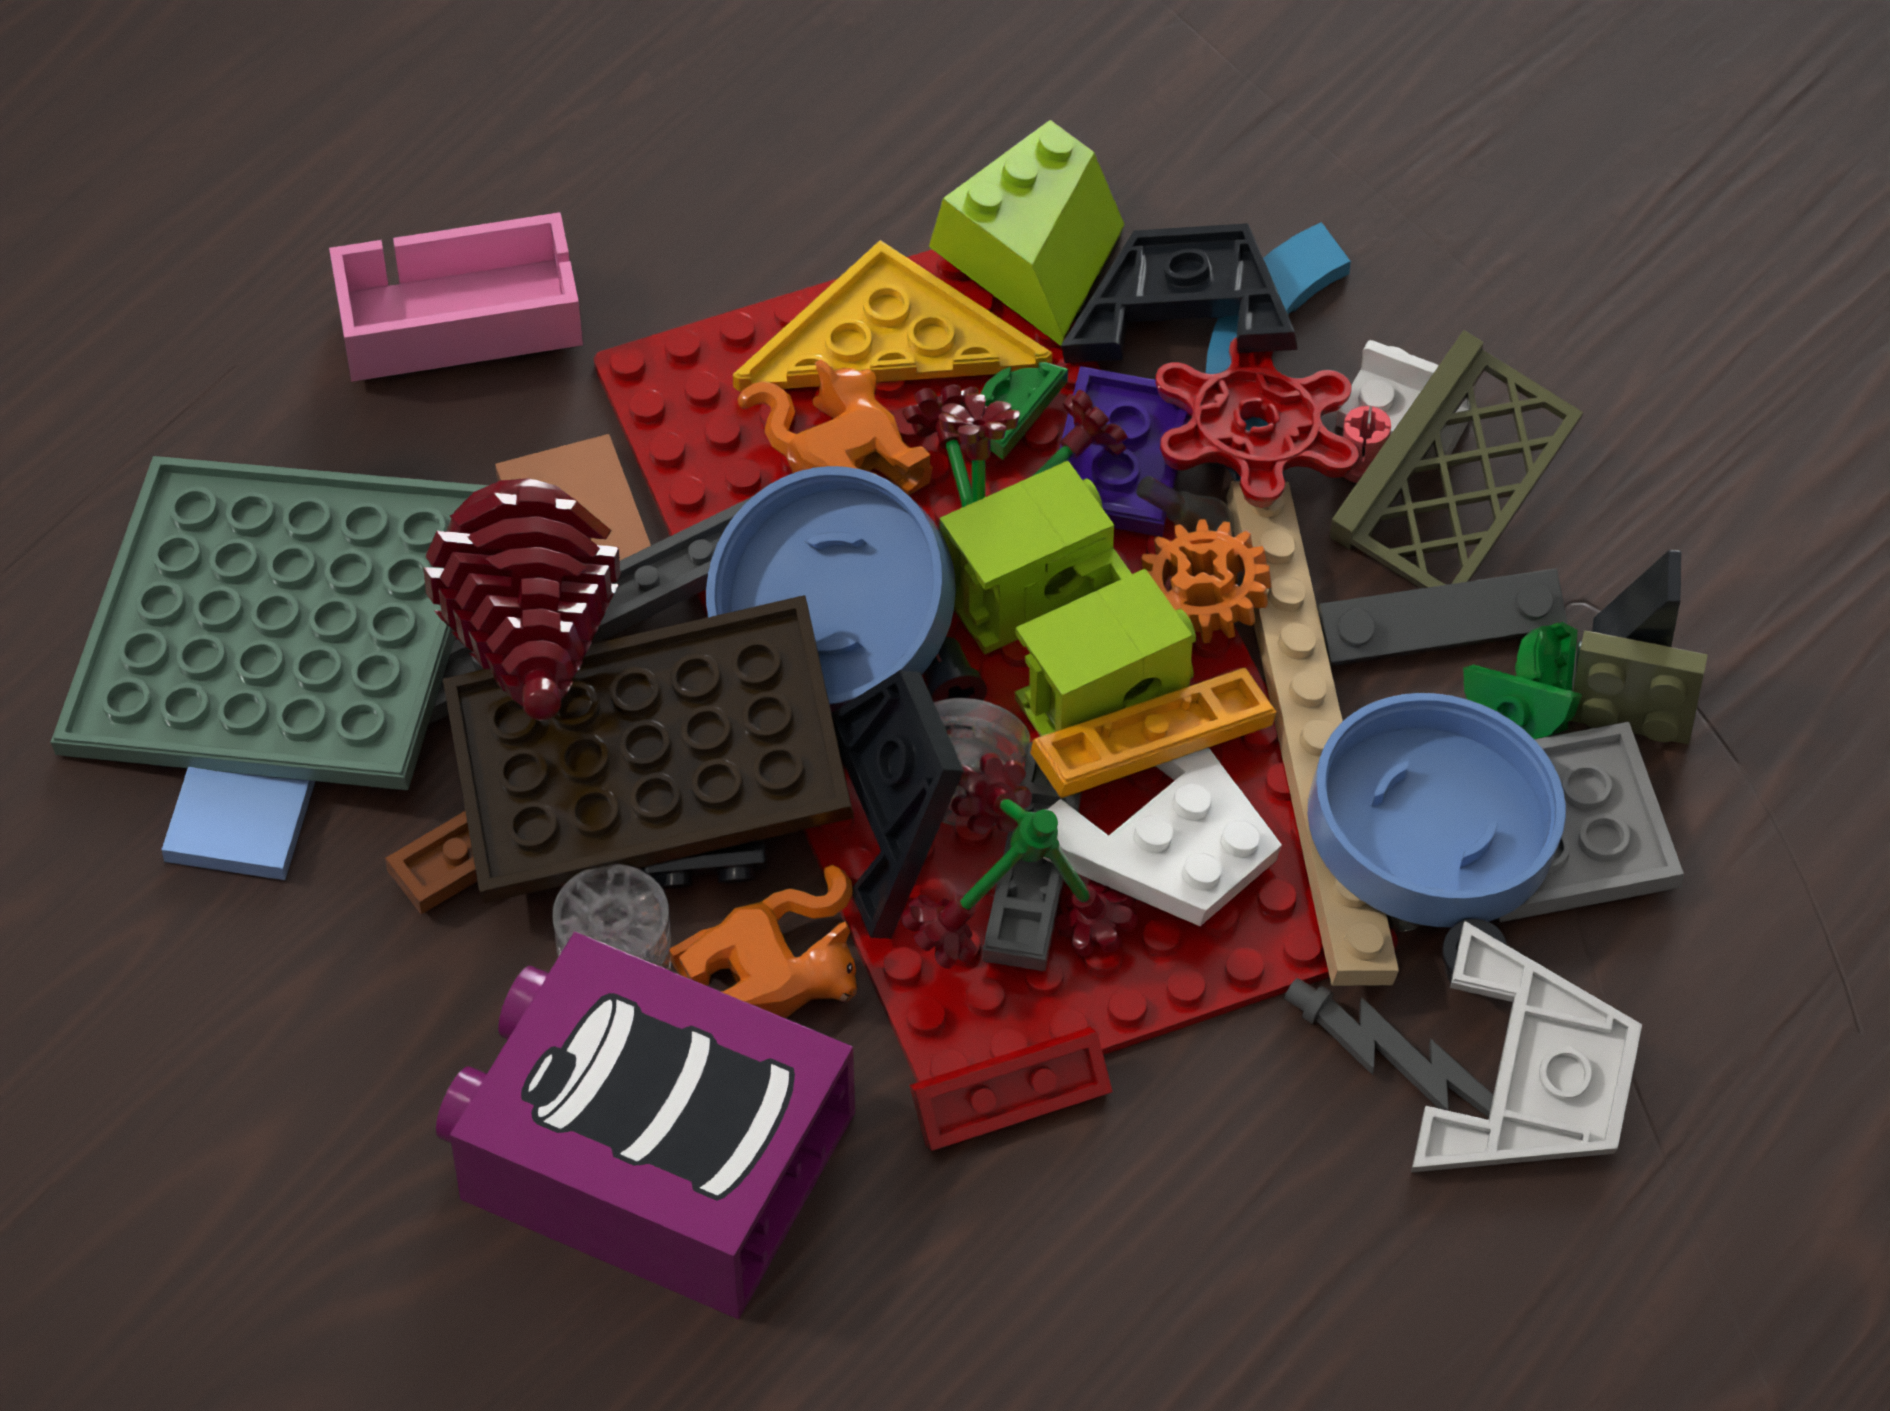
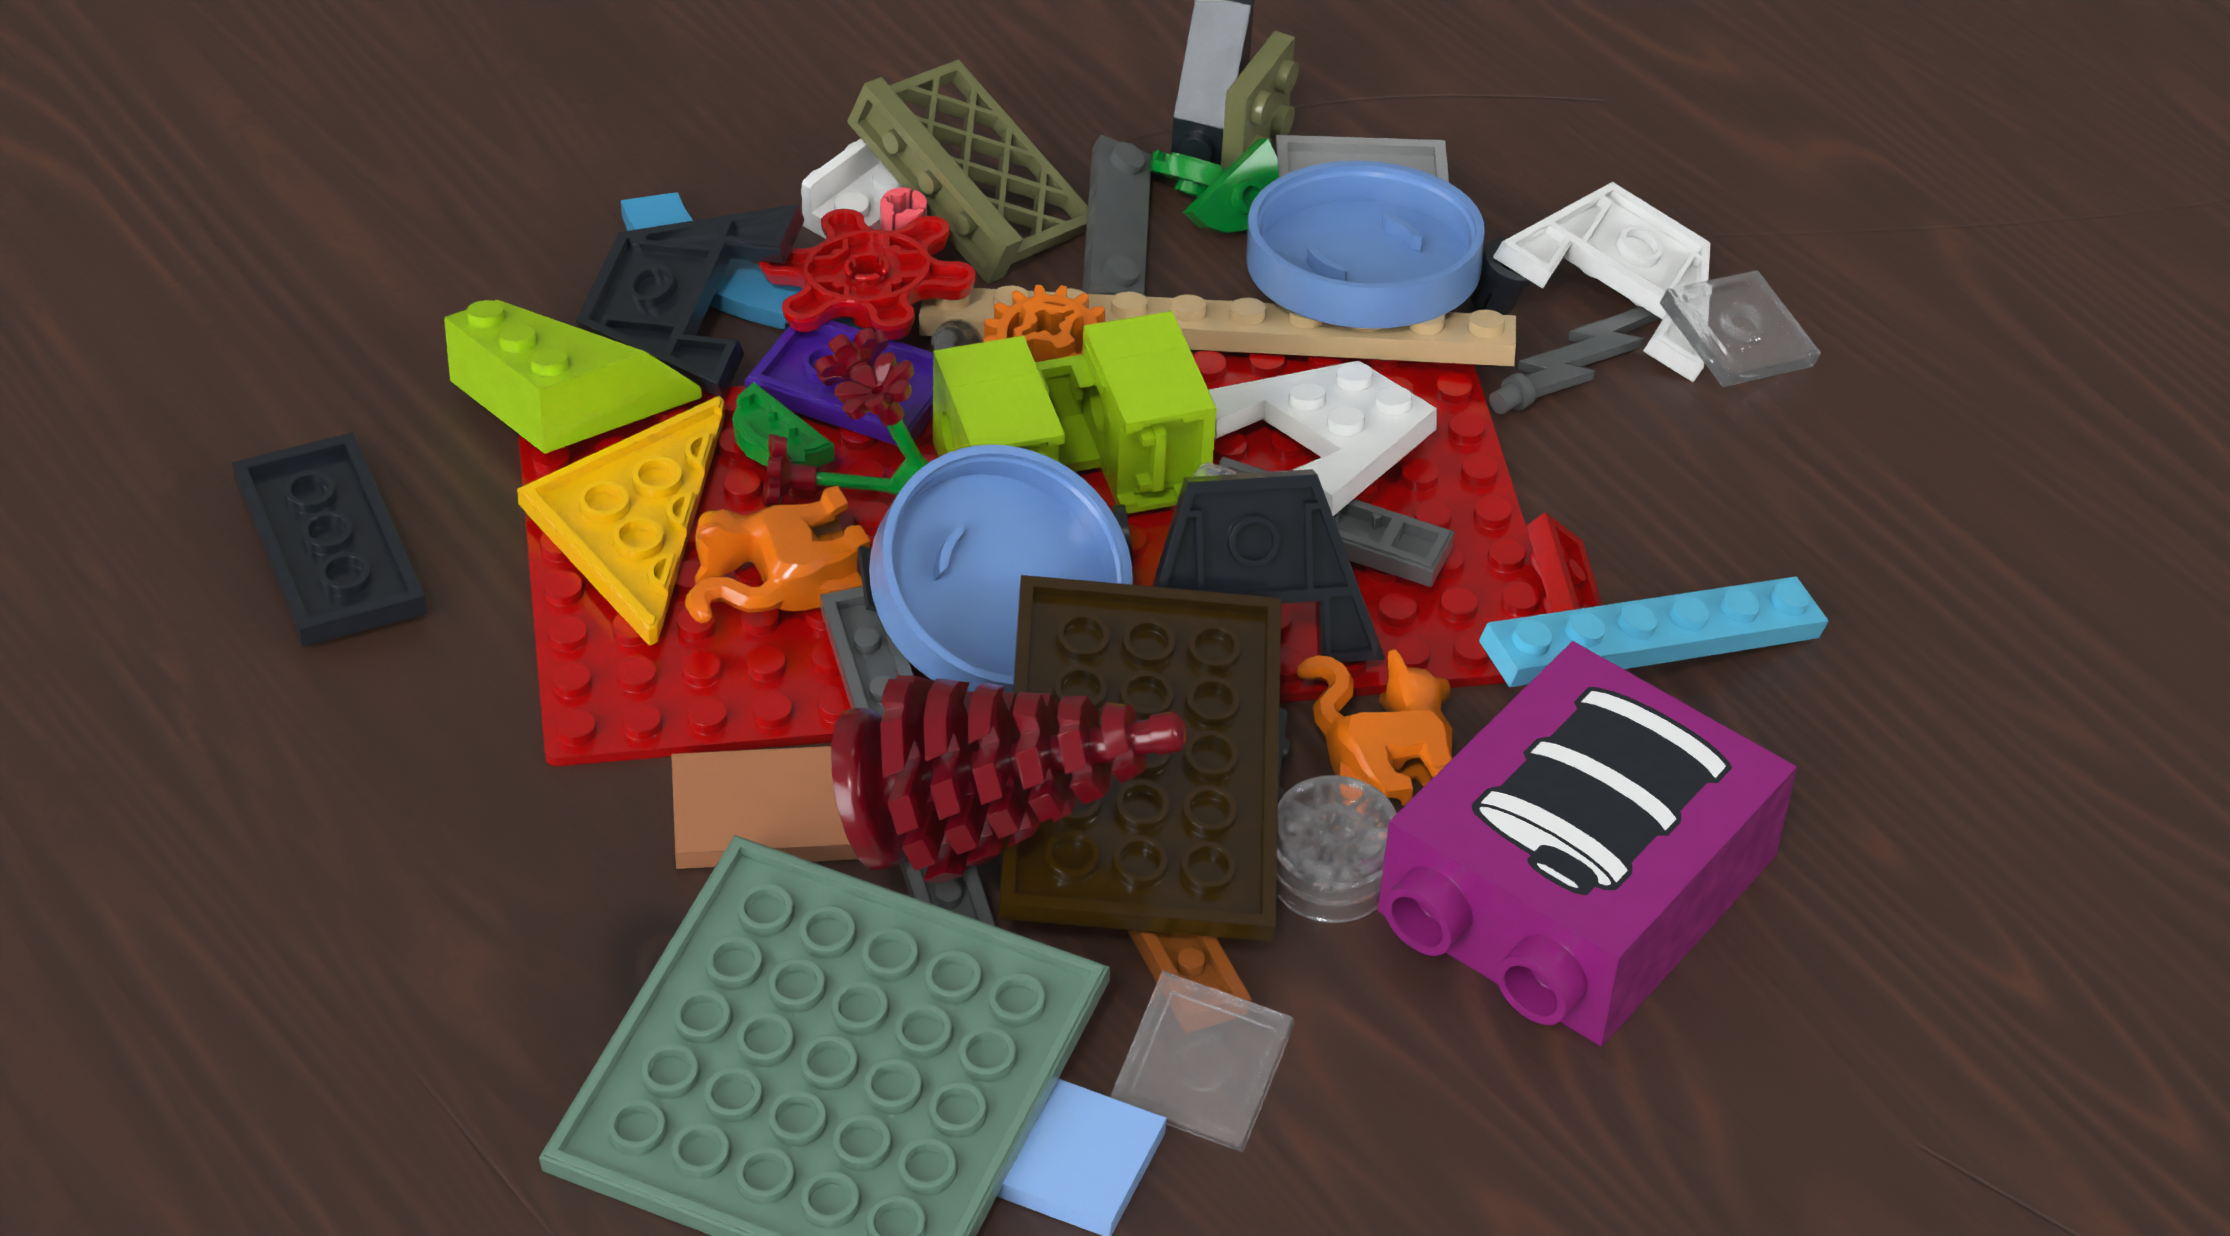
camera: 80 degrees left, 10 degrees down
(339, 877) = (1203, 1060): none -> clear tile
(457, 297) = (443, 835): bright pink piece -> none
(797, 137) = (328, 539): none -> black plate
(963, 1154) = (1659, 628): none -> medium azure plate
(996, 798) = (1400, 491): dark red plant -> none
(1152, 732) = (1243, 428): light orange plate -> none
(1481, 1191) = (1740, 328): none -> clear tile

